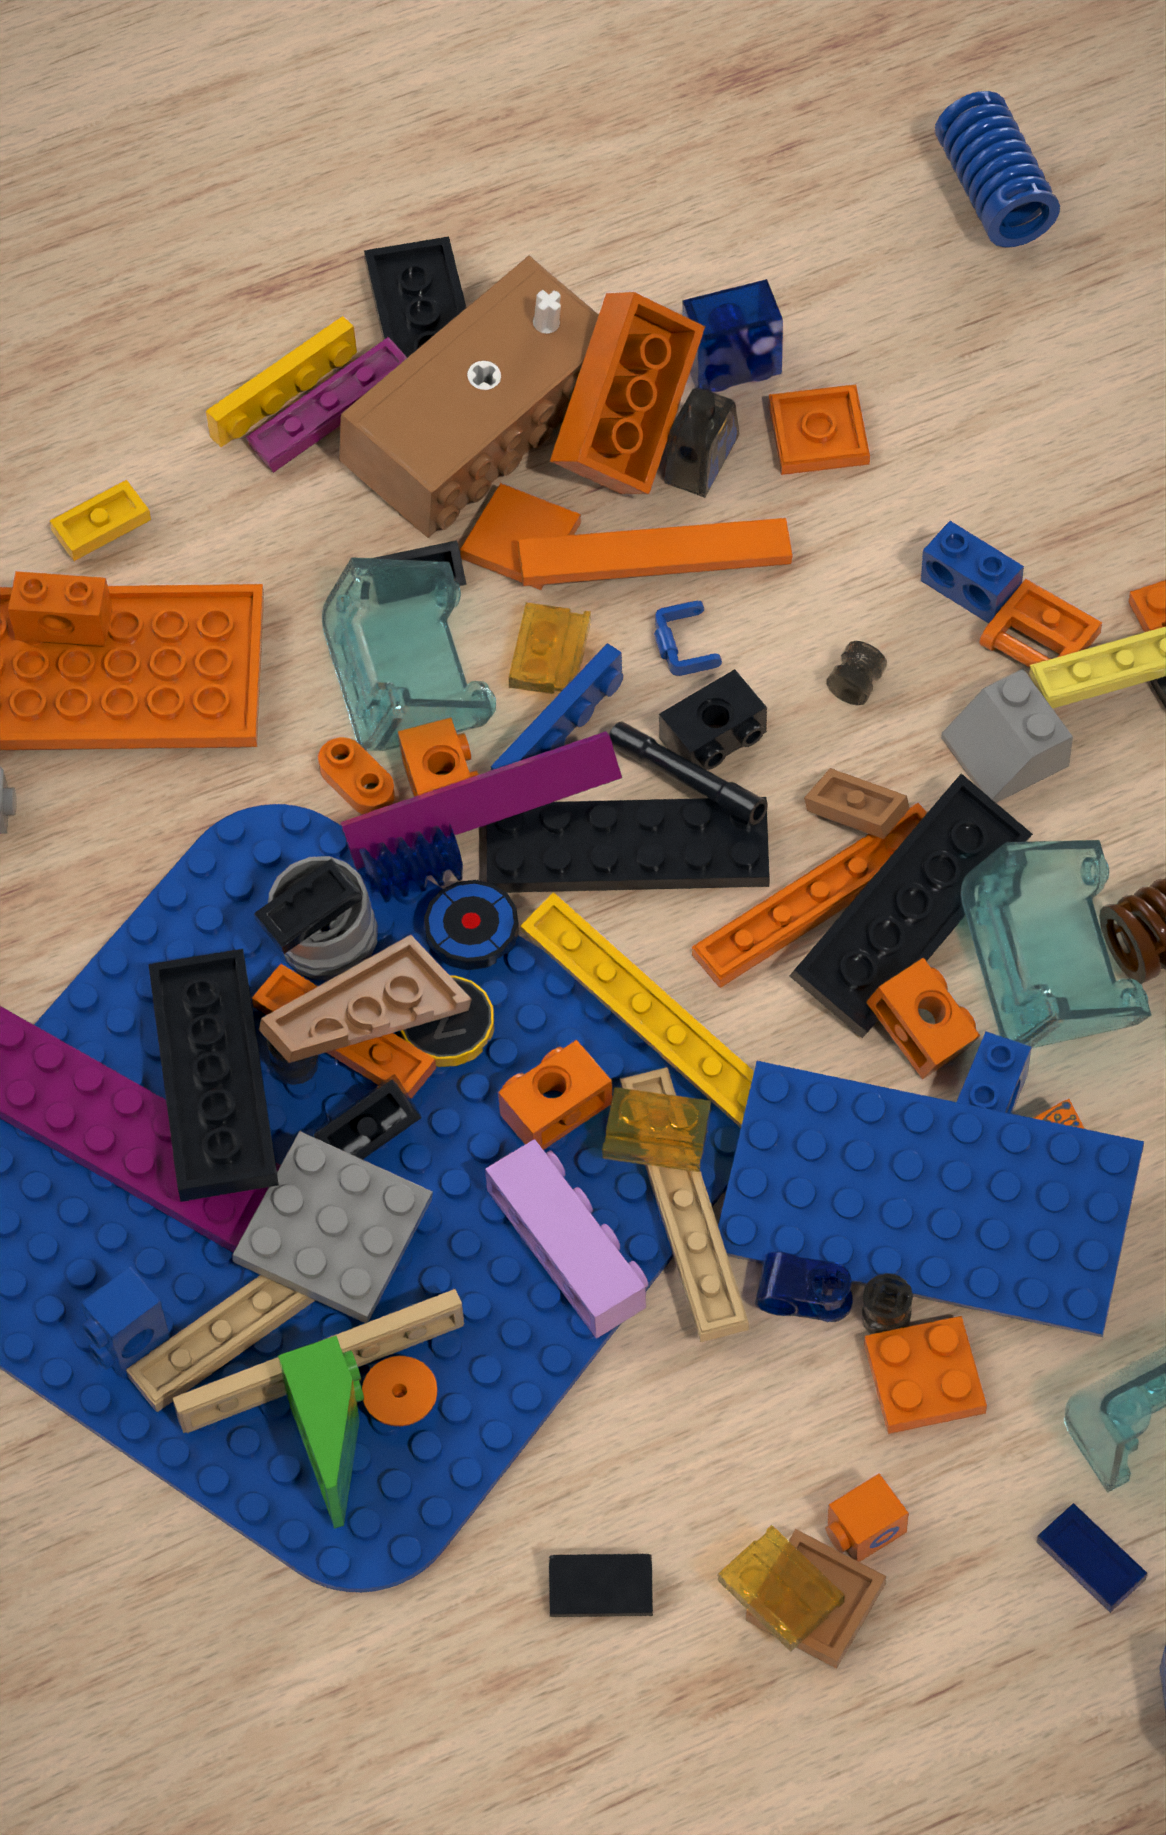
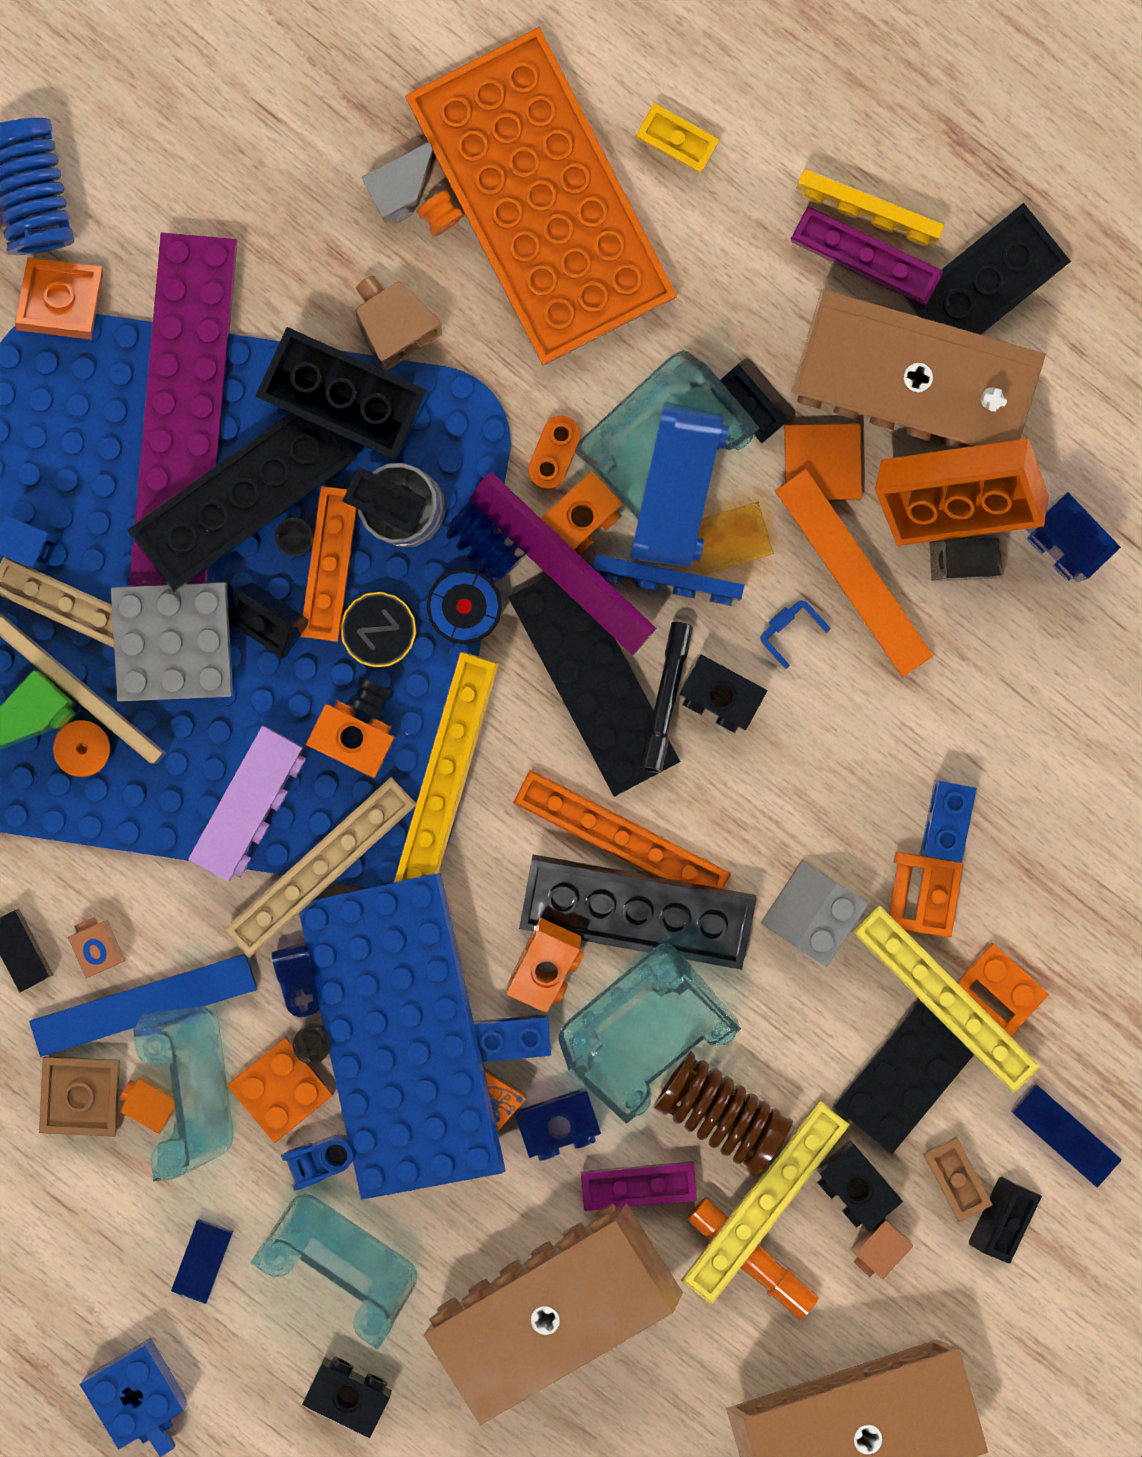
camera: 60 degrees right, 30 degrees up
(32, 765) = (440, 213): none -> orange wheel
(60, 608) = (568, 163): orange brick -> none
(118, 855) = (394, 322): none -> medium nougat torso
(159, 918) = (342, 393): none -> black slope
(370, 1000) = (353, 577): medium nougat wing -> none
(469, 637) = (678, 485): none -> blue windscreen
(516, 1052) = (370, 697): none -> black wheel
(644, 1491) = (95, 947): none -> nougat brick
(656, 1129) = (359, 825): clear yellow plate -> none
(742, 1471) = (123, 1009): none -> blue tile
(781, 1588) = (63, 1076): clear yellow plate -> none
(813, 1426) = (193, 1050): none -> clear light blue windscreen
(819, 429) = (1033, 638): orange tile -> none
(855, 675) = (827, 776): clear smoke wheel -> none
(856, 803) = (703, 831): medium nougat plate -> none
(1032, 1368) = (312, 1162): none -> blue piece
(1118, 1064) = (575, 1107): none -> clear blue brick

